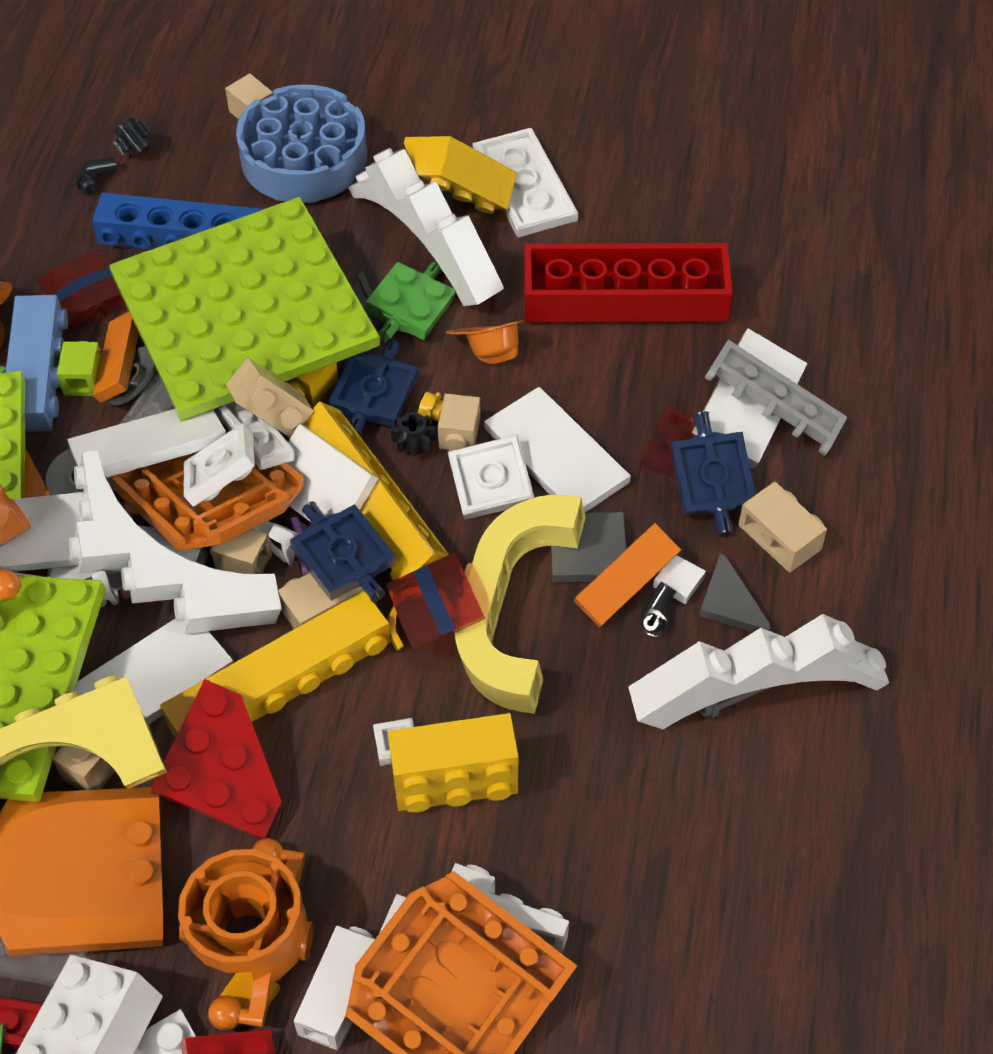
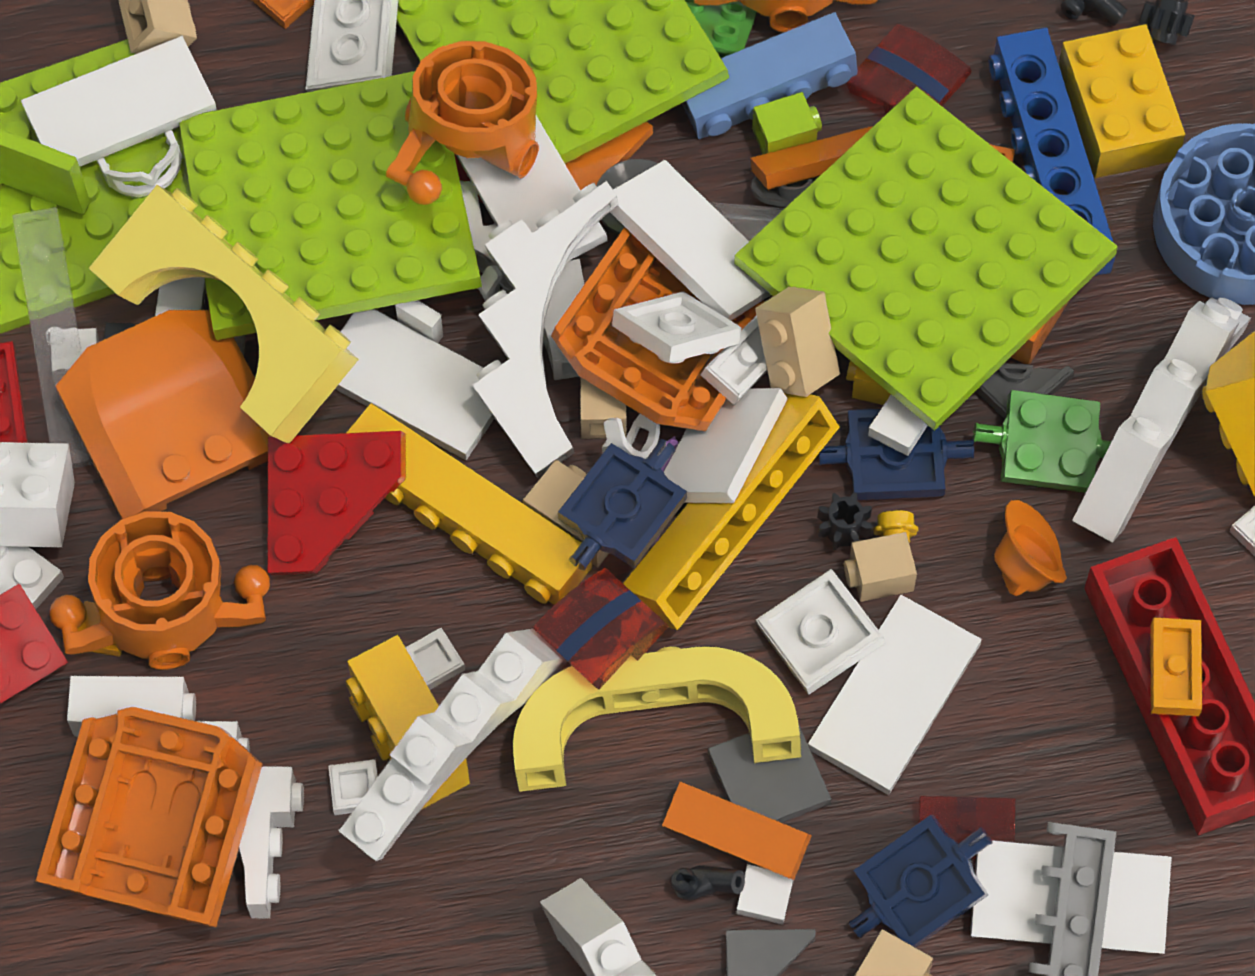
camera: 70 degrees right, 10 degrees up
(100, 652) = (420, 319): none -> white tile
(179, 172) = (1121, 101): none -> yellow brick
(358, 372) = (897, 426): none -> white tile
(481, 833) = (350, 784): none -> white tile
(507, 718) = (445, 738): none -> white arch
(623, 268) = (1176, 667): none -> light orange plate

